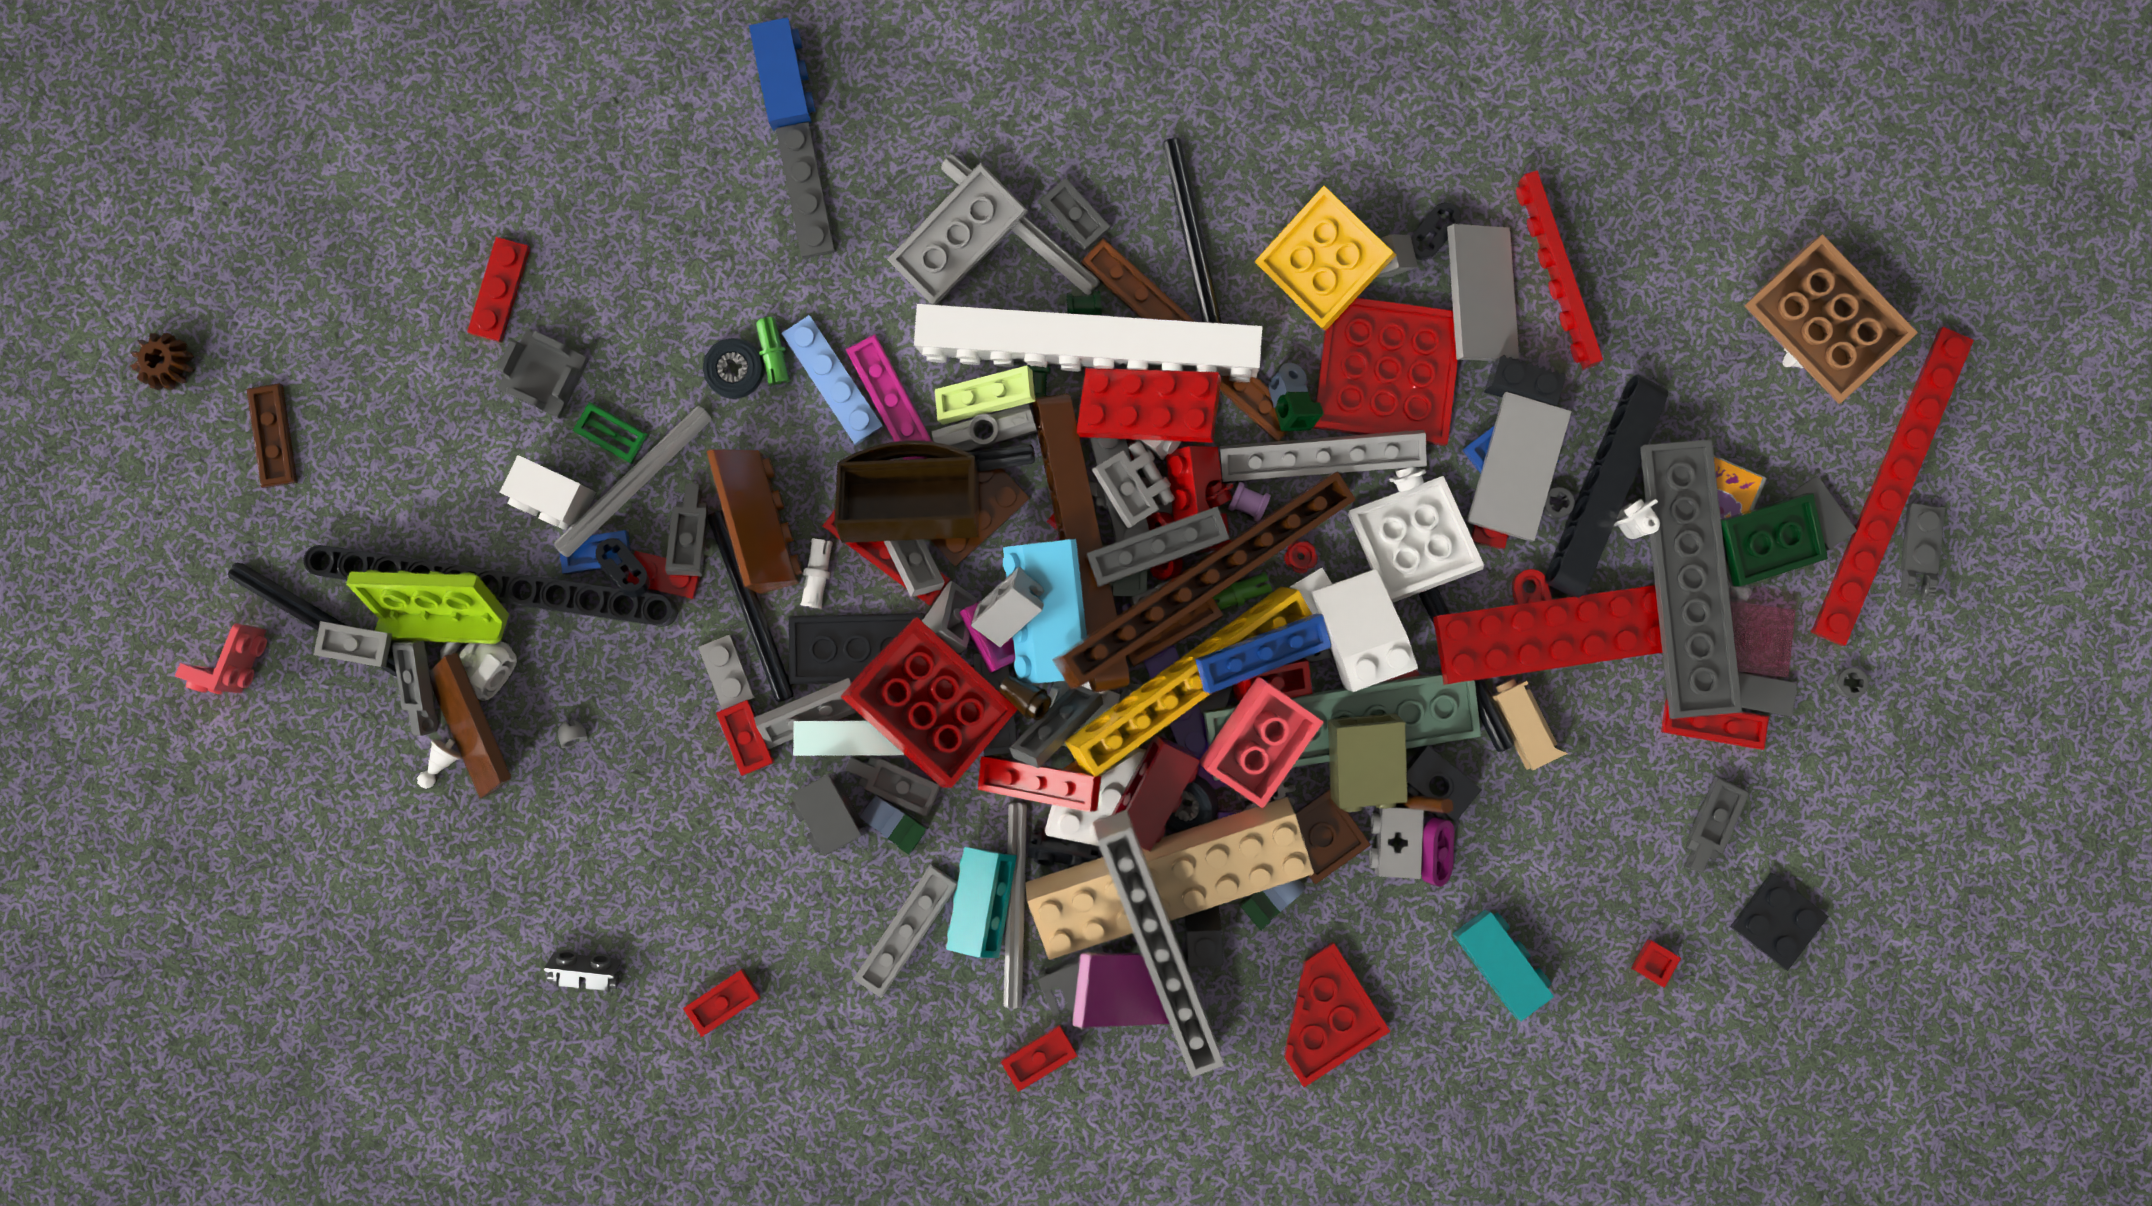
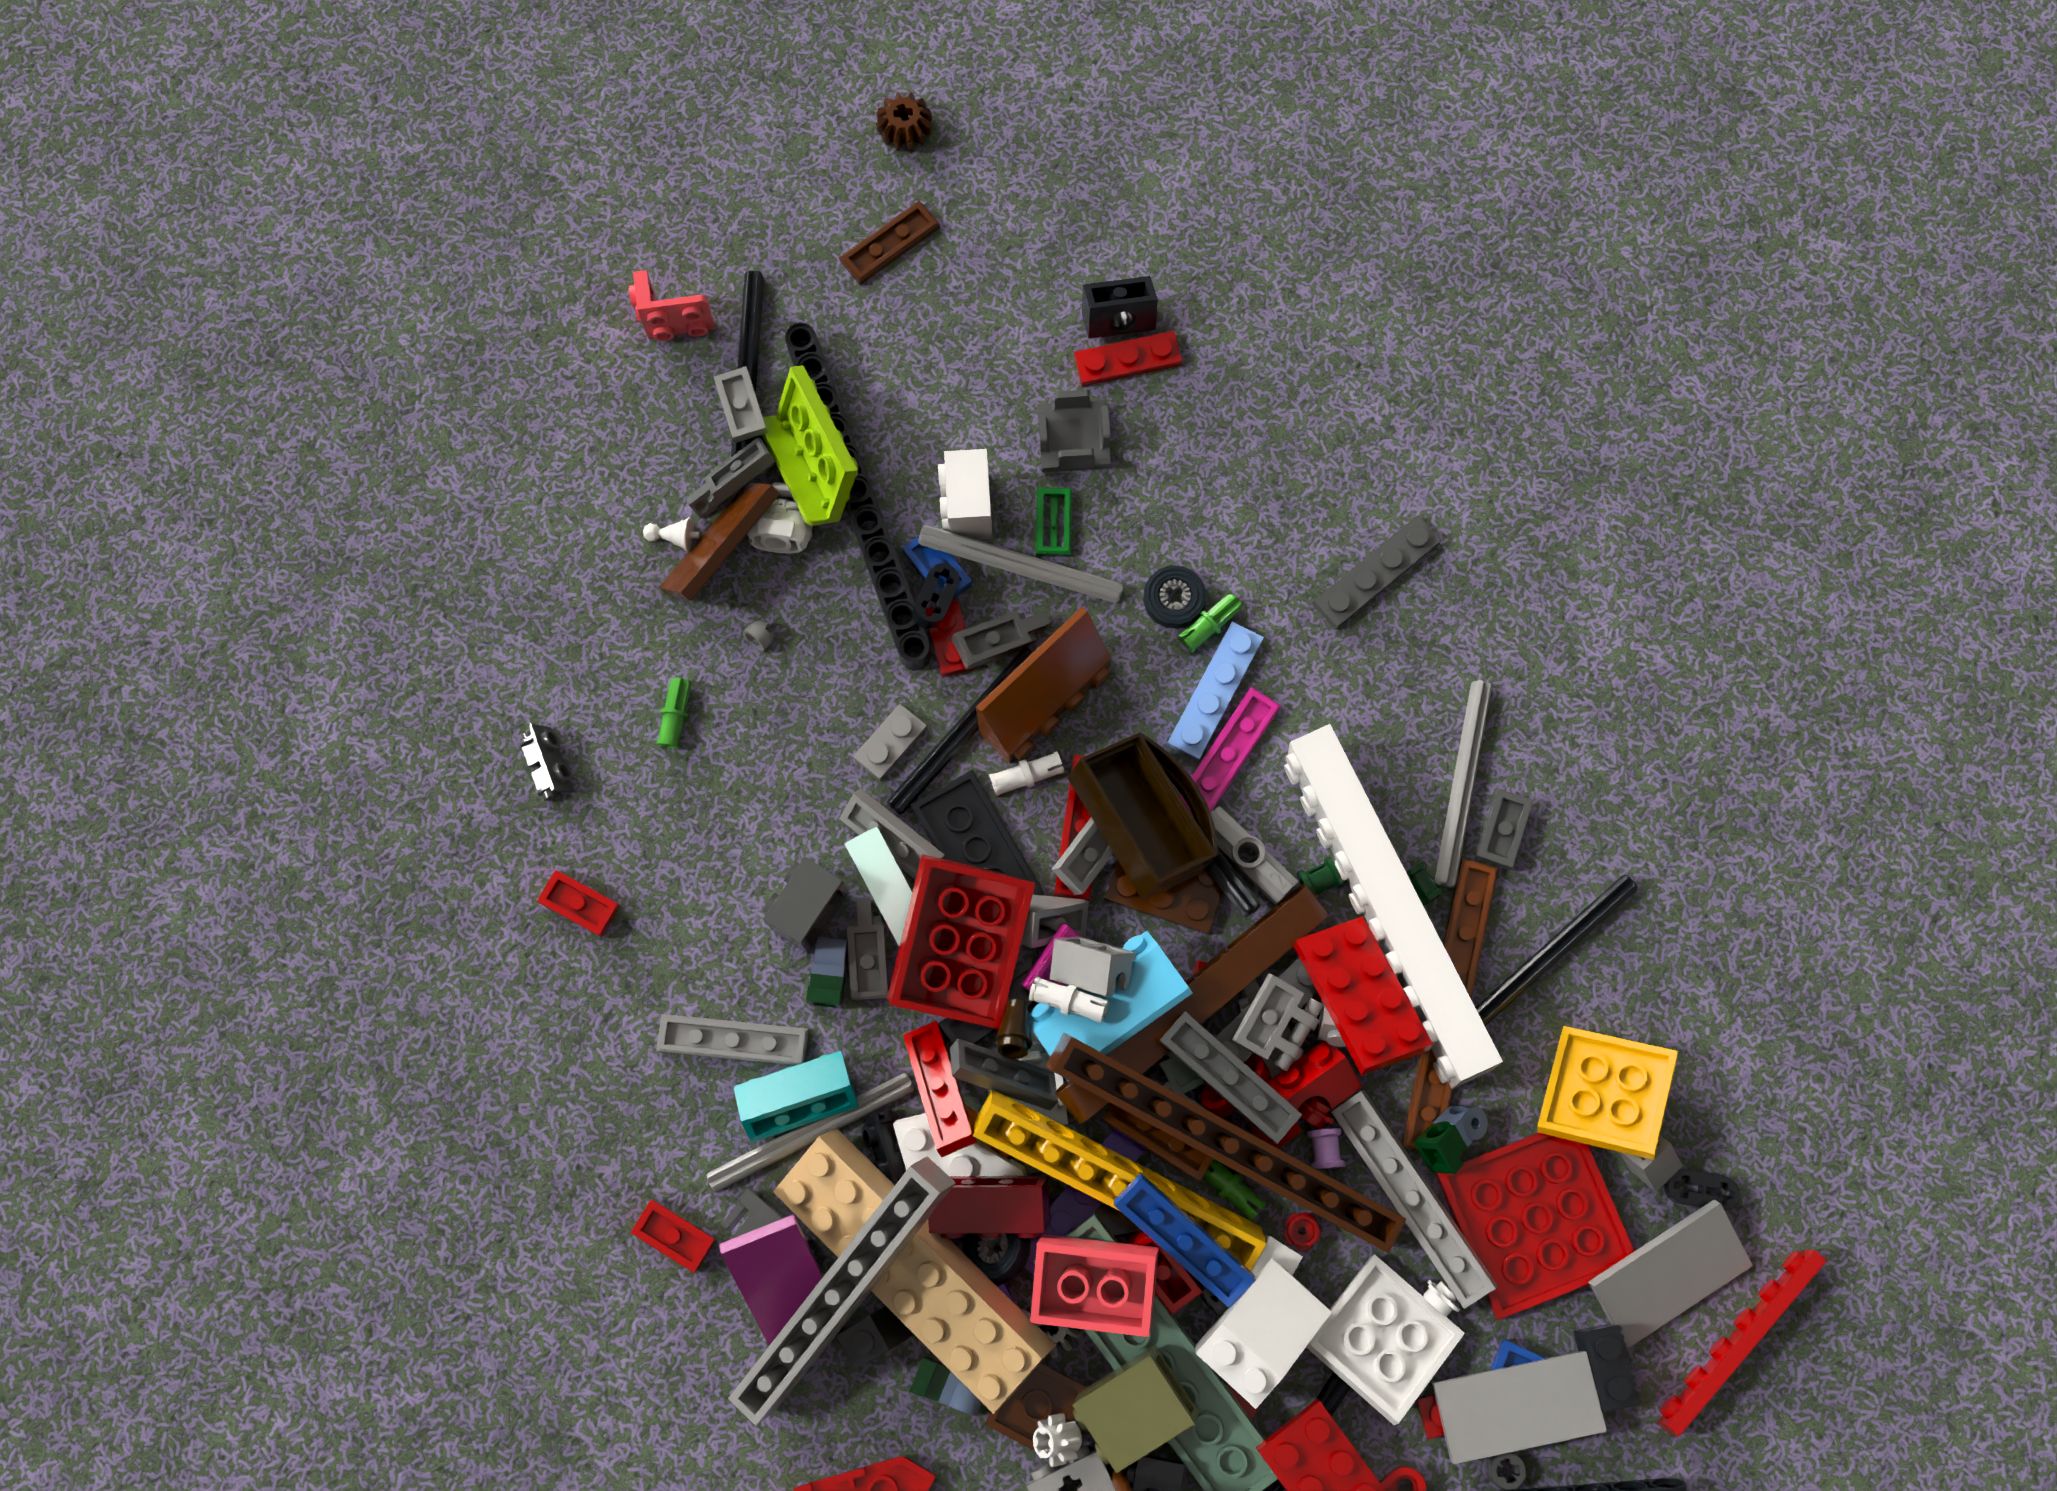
camera: 65 degrees right, 10 degrees down
(449, 271) = (1119, 307): none -> black brick
(600, 841) = (674, 713): none -> bright green axle
(744, 738) = (836, 789): red plate -> none
(782, 73) = (1471, 492): blue brick -> none
(958, 235) = (1418, 731): light grey tile -> none
(985, 395) = (1282, 837): yellowish green plate -> none
(1027, 641) = (1069, 1000): none -> white pin
(1358, 834) = (1057, 1439): none -> white gear

